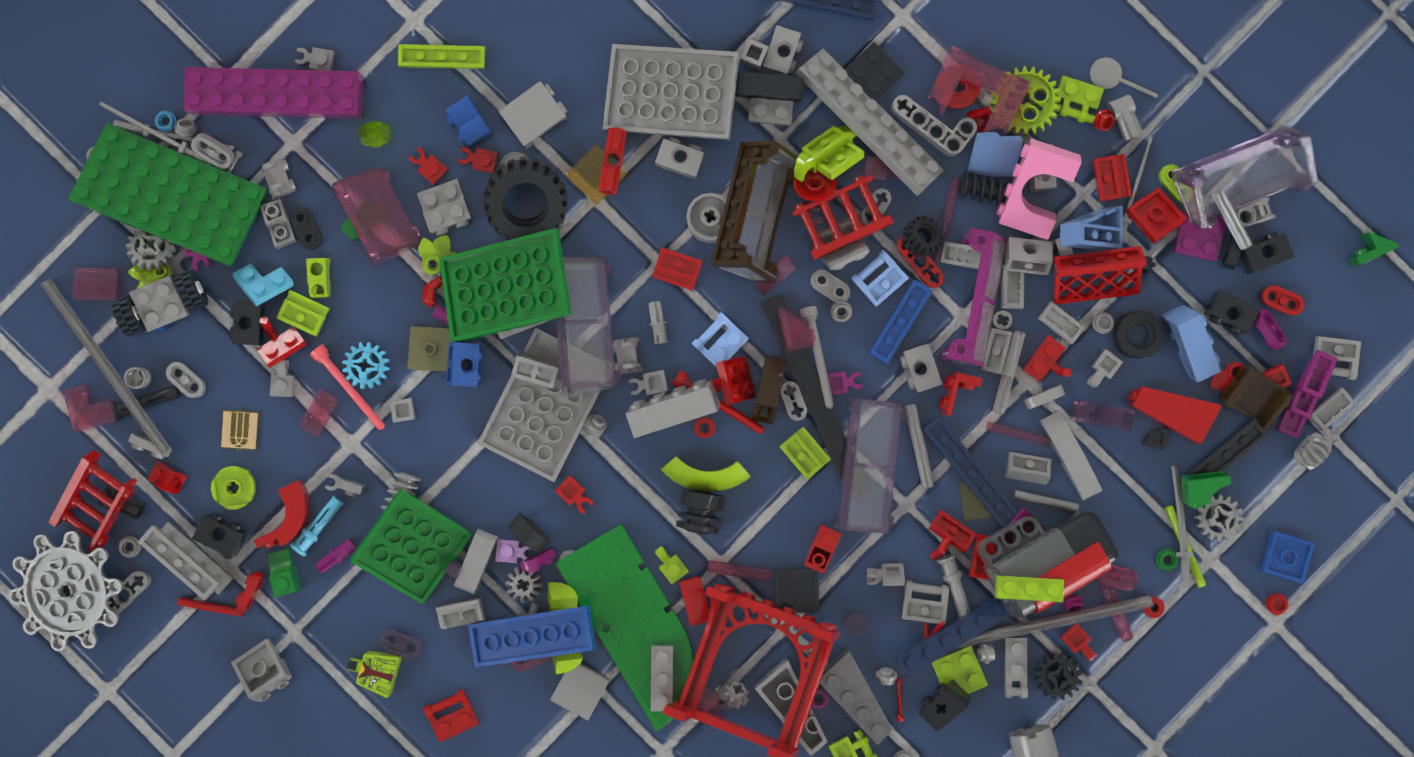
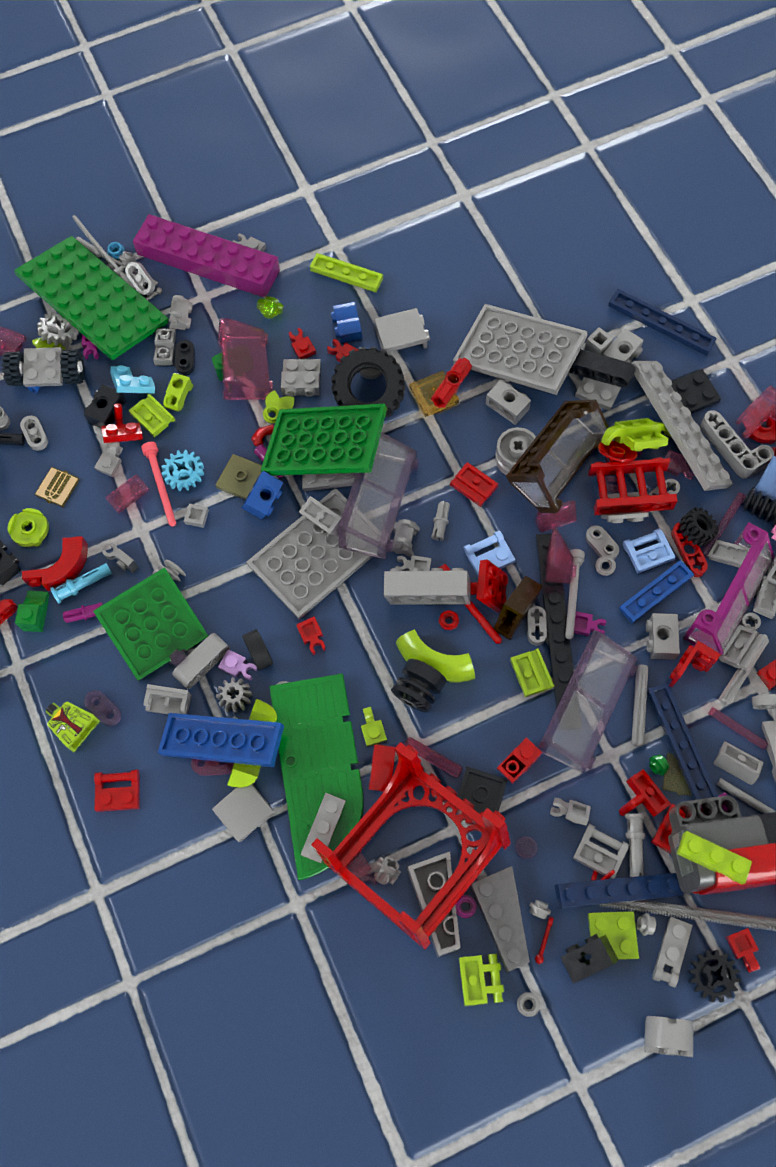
camera: 25 degrees right, 20 degrees down
(541, 558) = (259, 676): magenta plate -> none
(595, 425) = (353, 584): light grey plate -> none
(954, 500) = (658, 764): none -> green plate
(1073, 603) = (749, 906): magenta plate -> none

